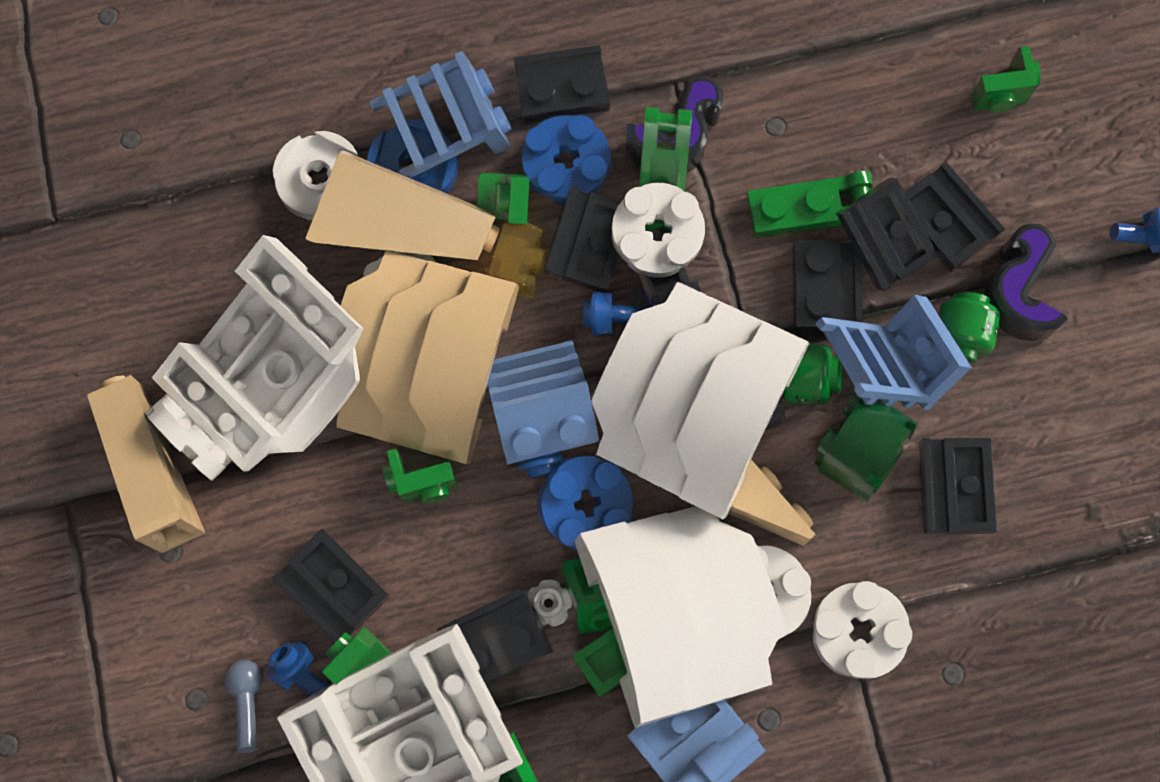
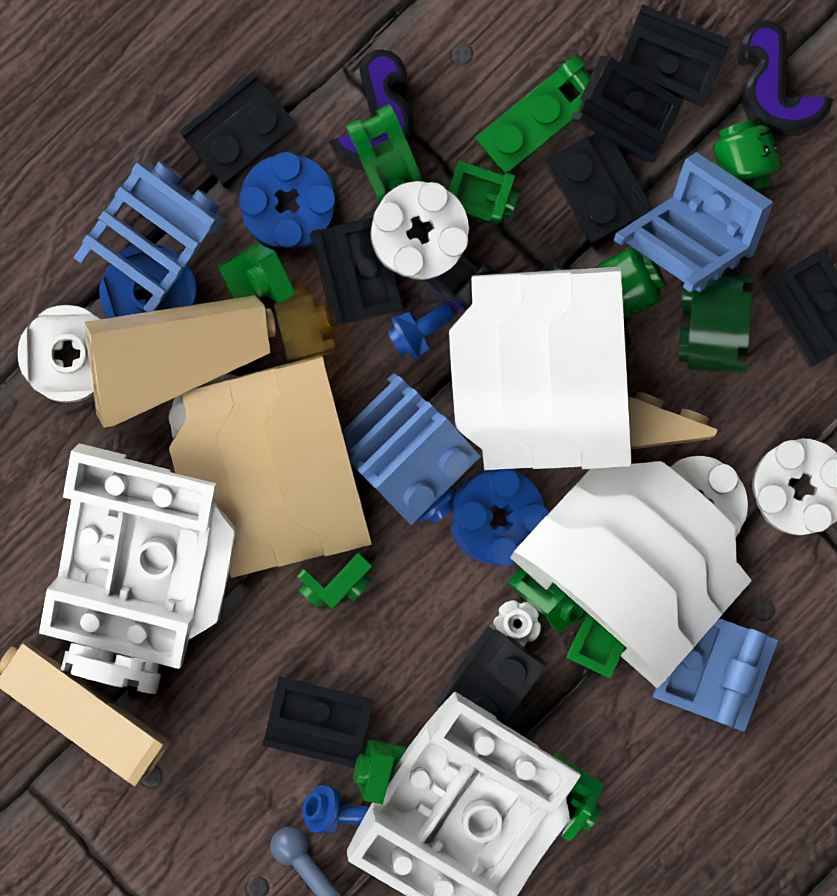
camera: 30 degrees left, 10 degrees up
(729, 237) = (484, 193): none -> green bracket

